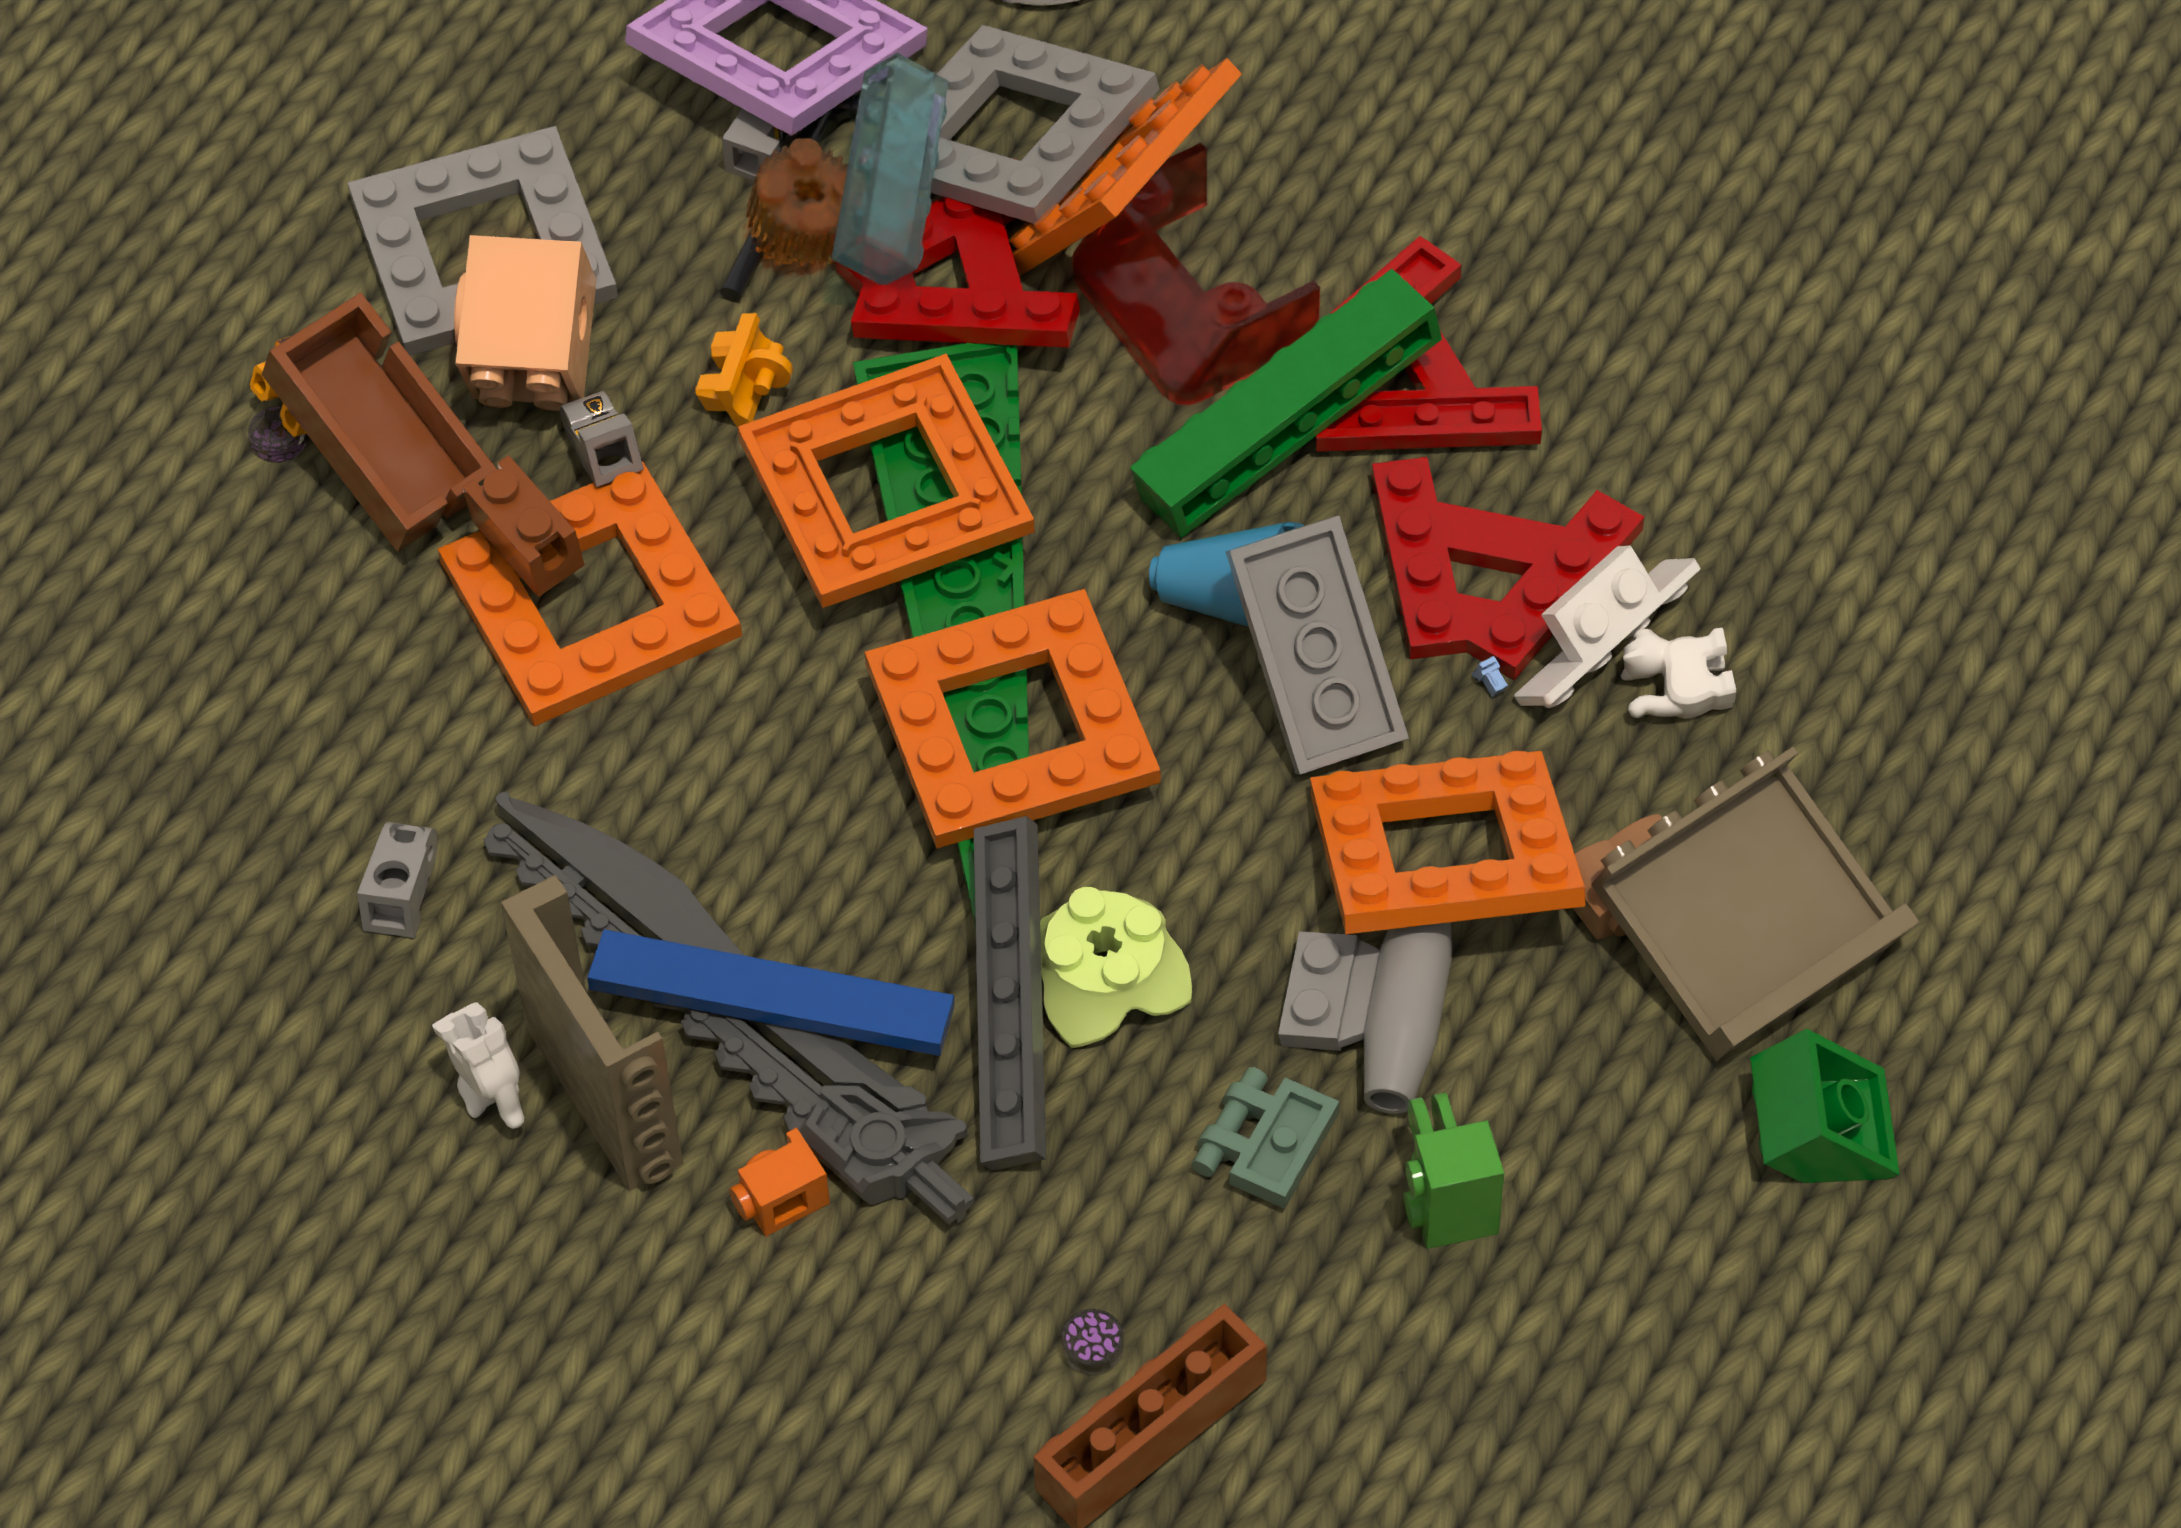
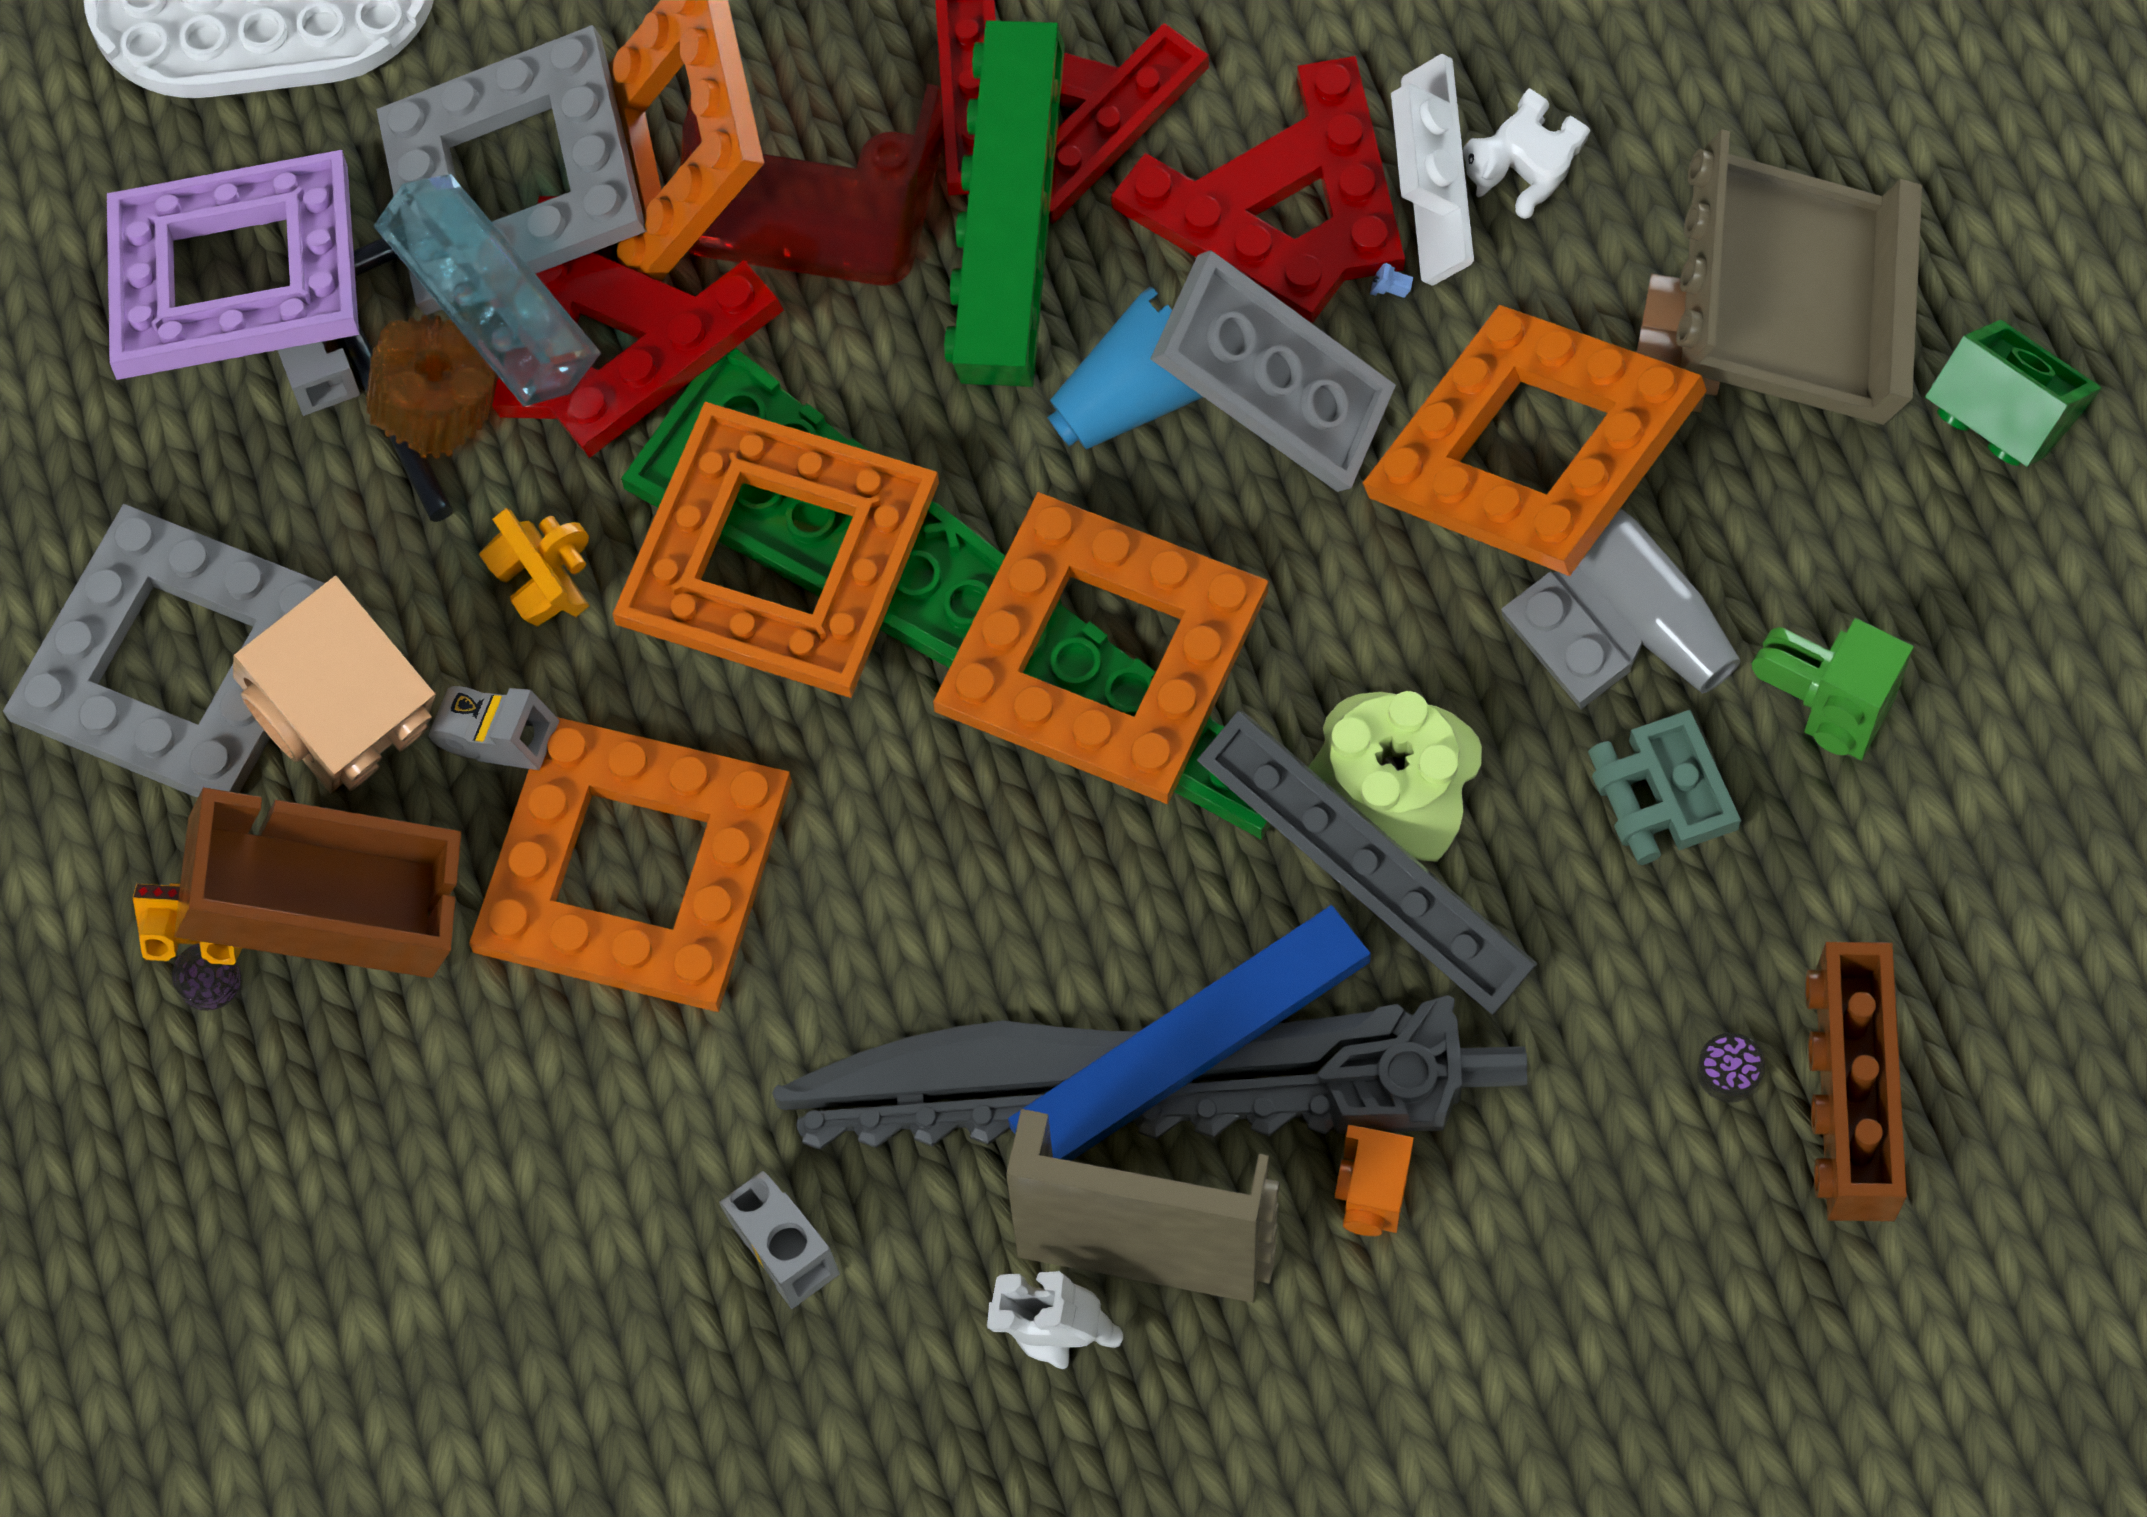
camera: 45 degrees left, 10 degrees up
(522, 522) = (541, 856): dark orange brick -> none

